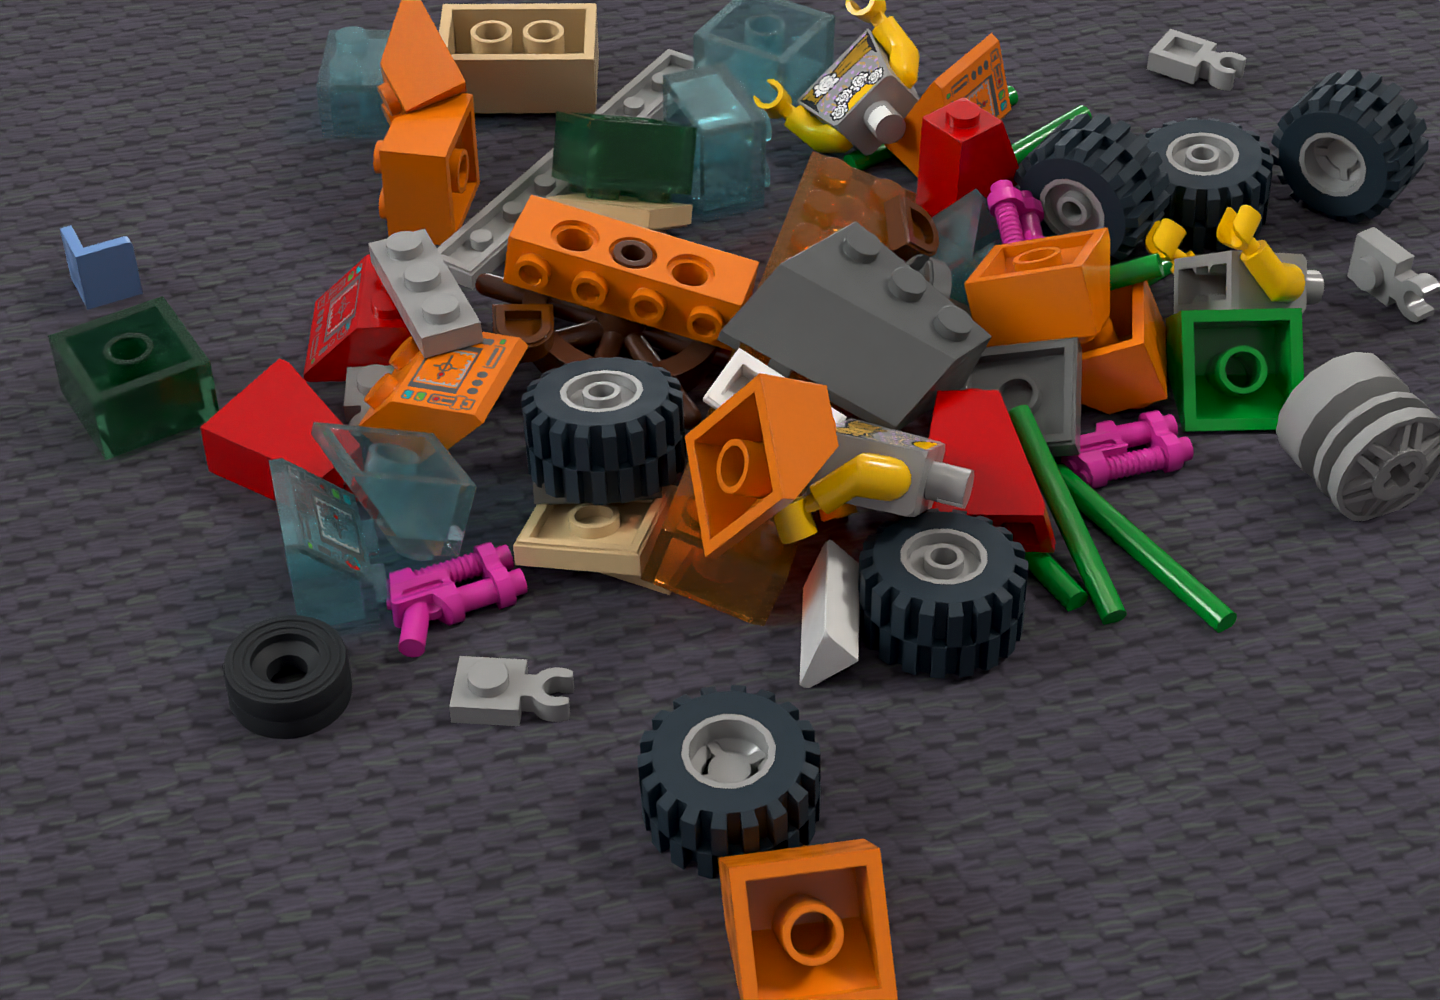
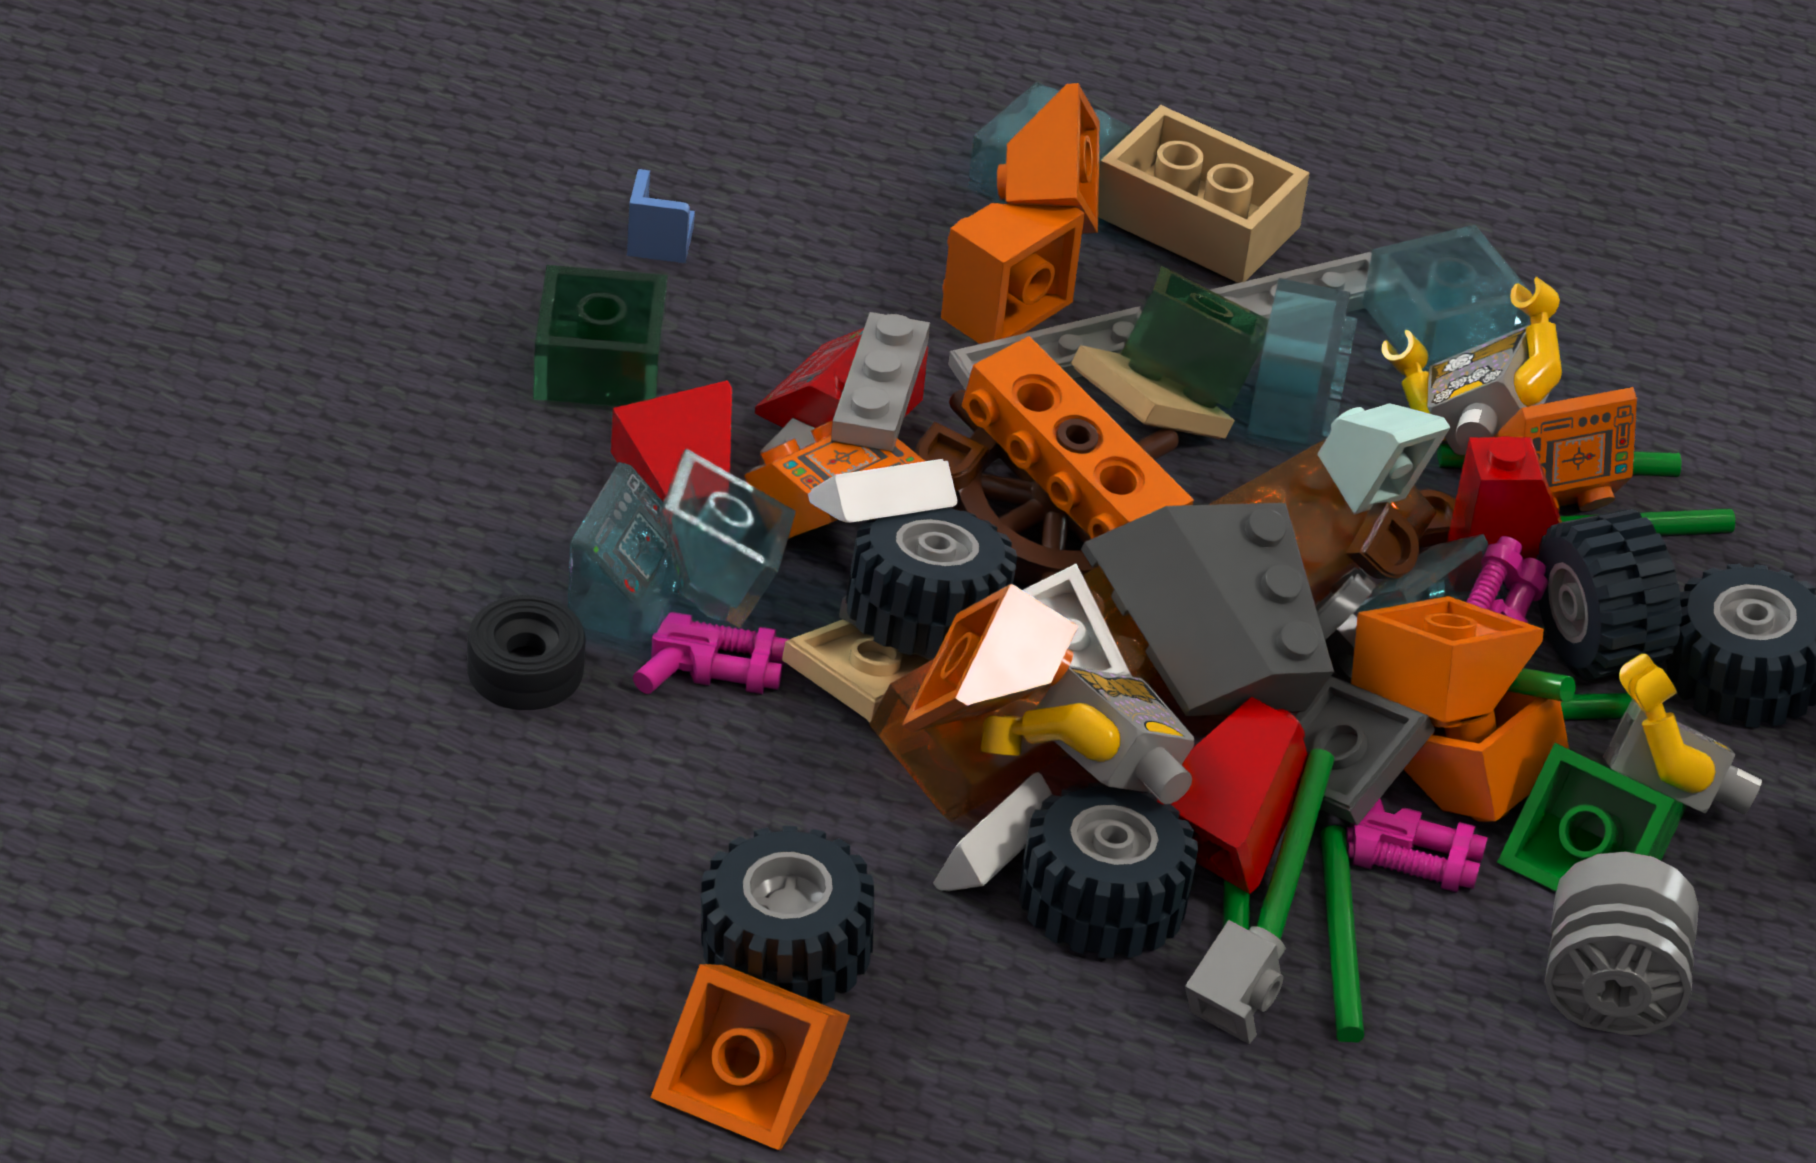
camera: 30 degrees right, 0 degrees up
(500, 689) = (687, 753): light grey plate -> none
(520, 373) = (886, 491): none -> white slope
(870, 155) = (1380, 452): none -> light aqua slope
(1125, 625) = (1237, 979): none -> light grey brick

